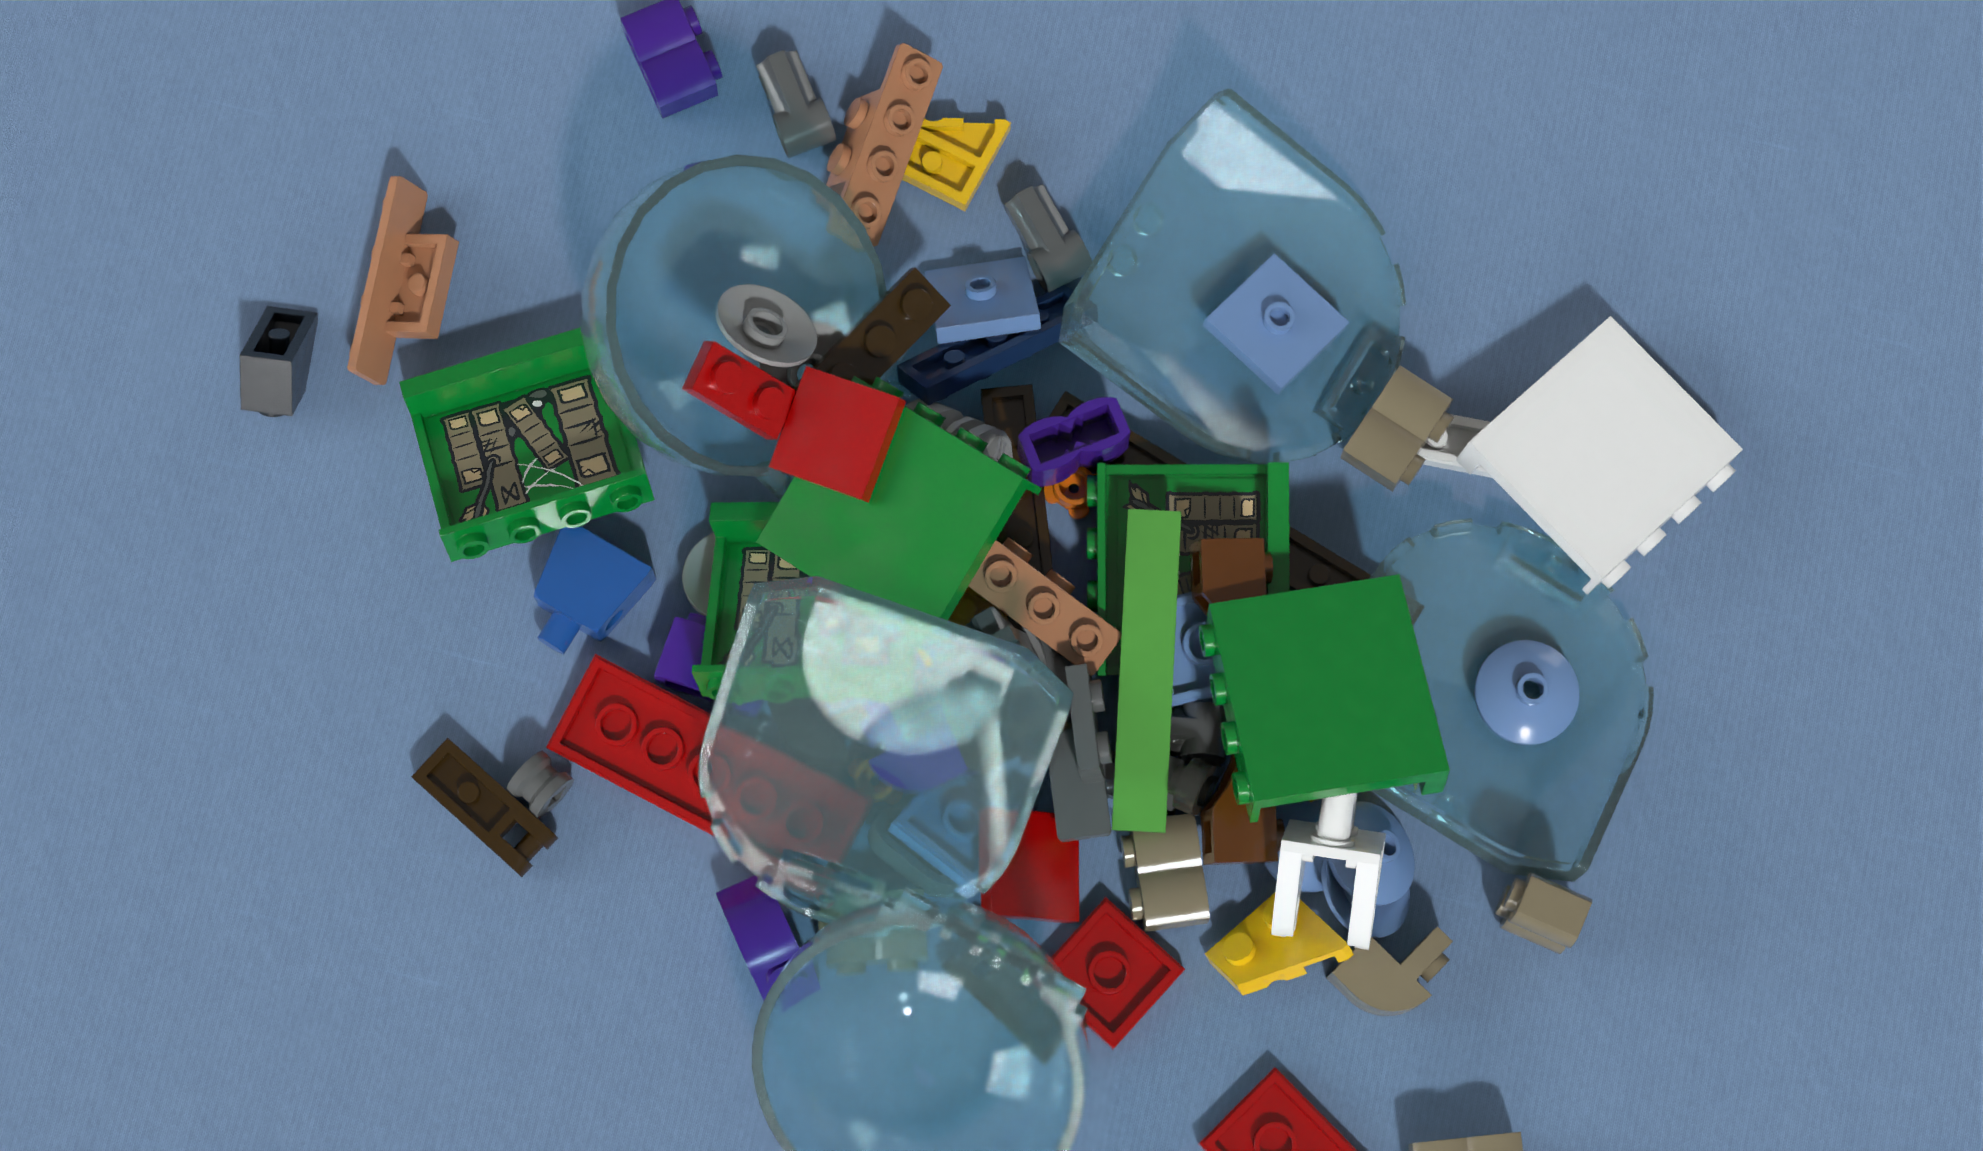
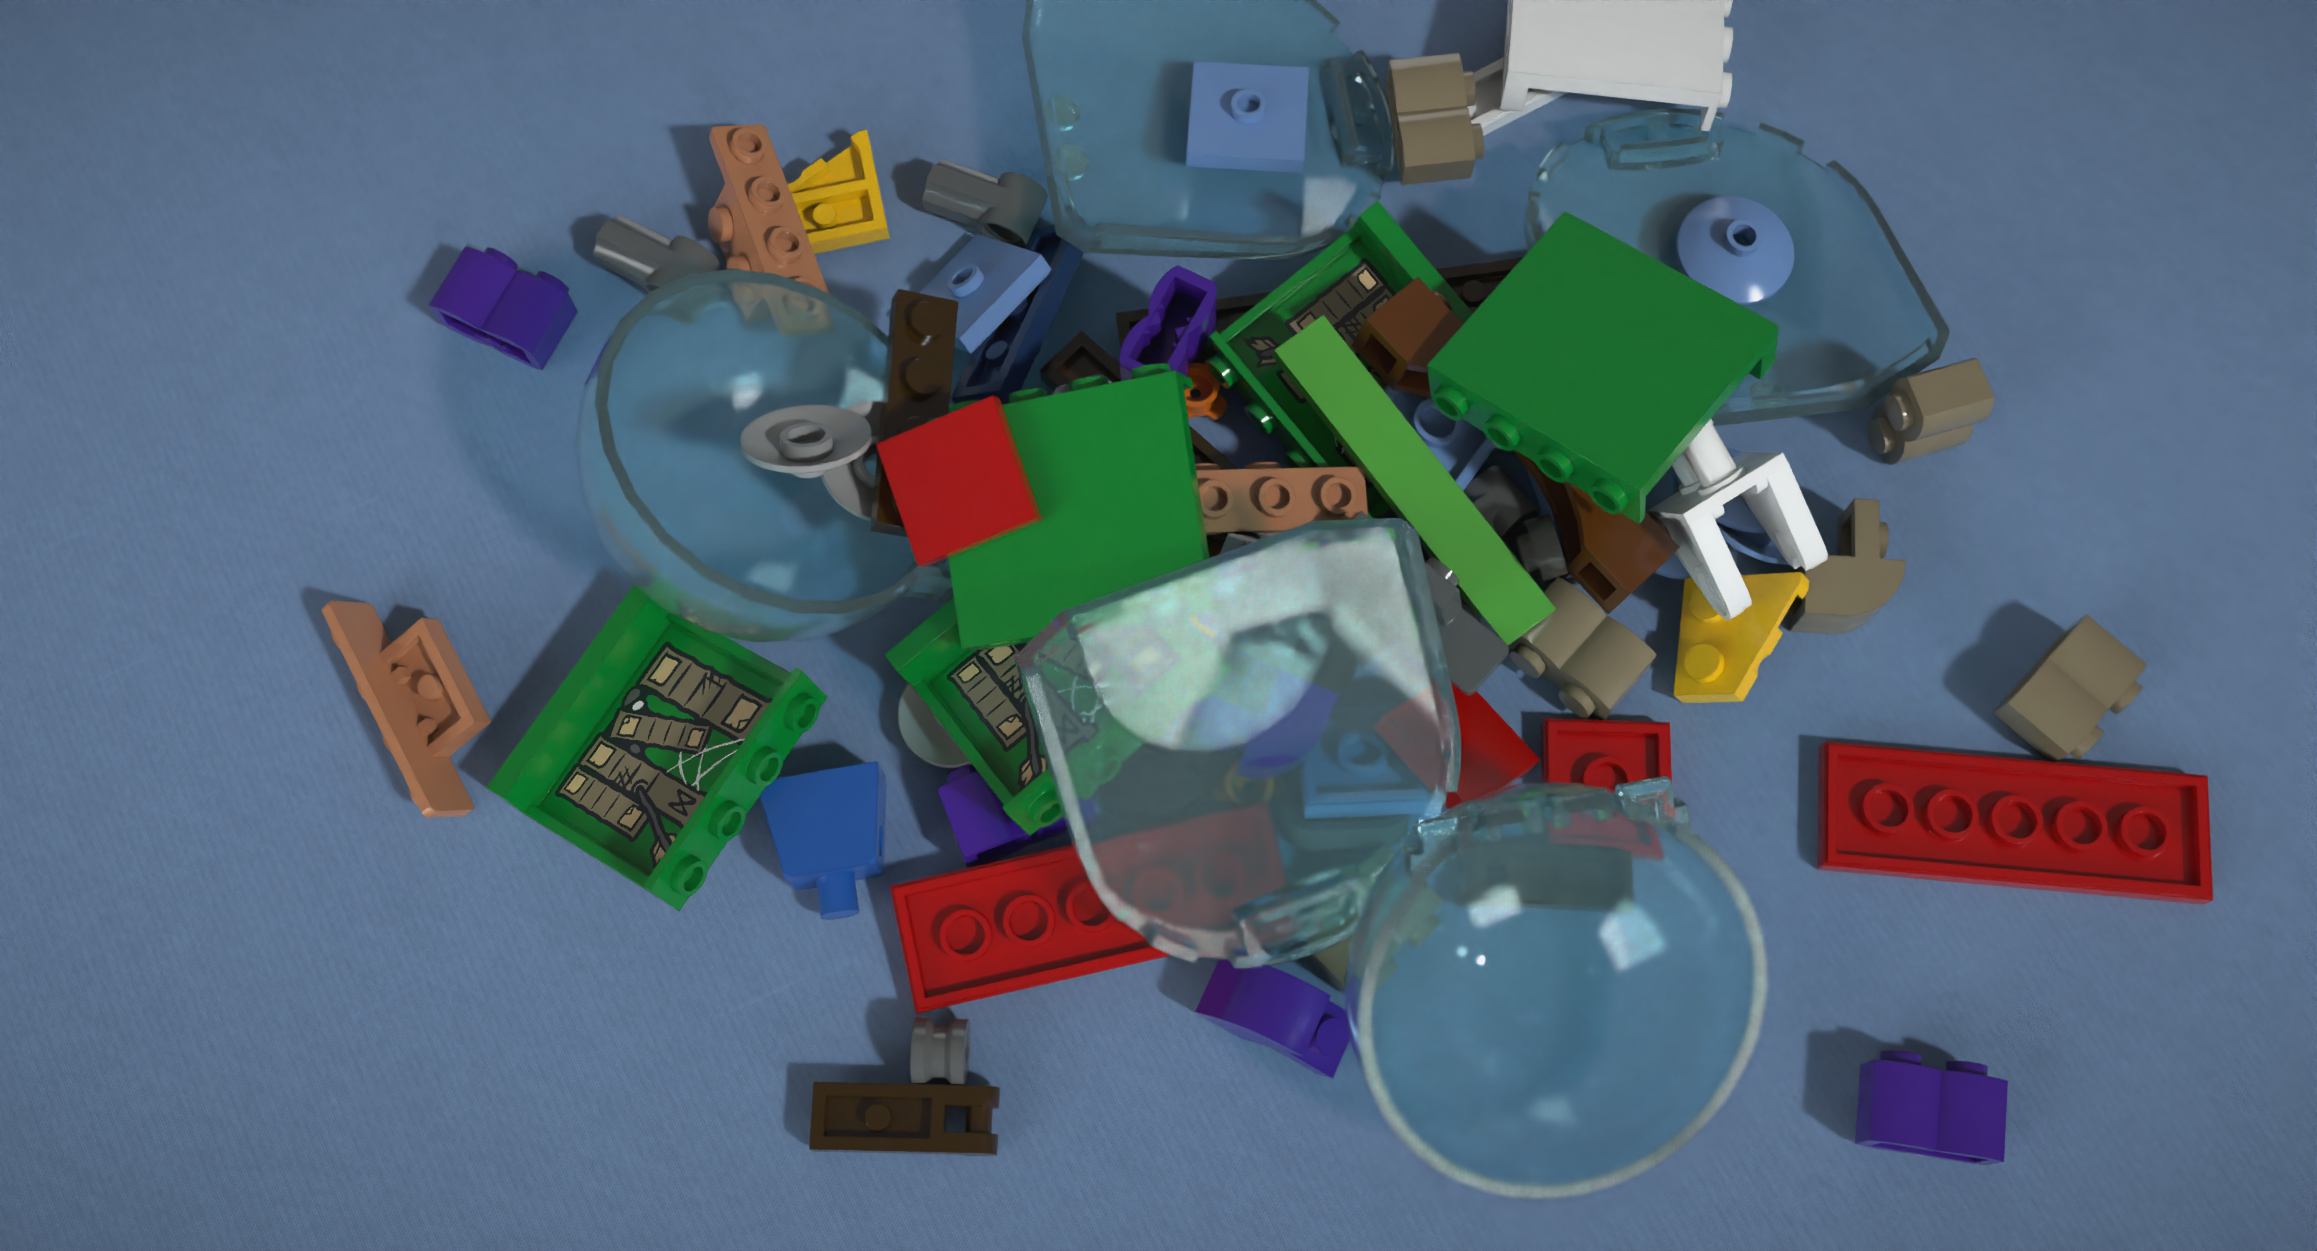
camera: 35 degrees left, 5 degrees down
(277, 361) = (348, 868): black slope -> none
(739, 390) = (832, 511): red plate -> none

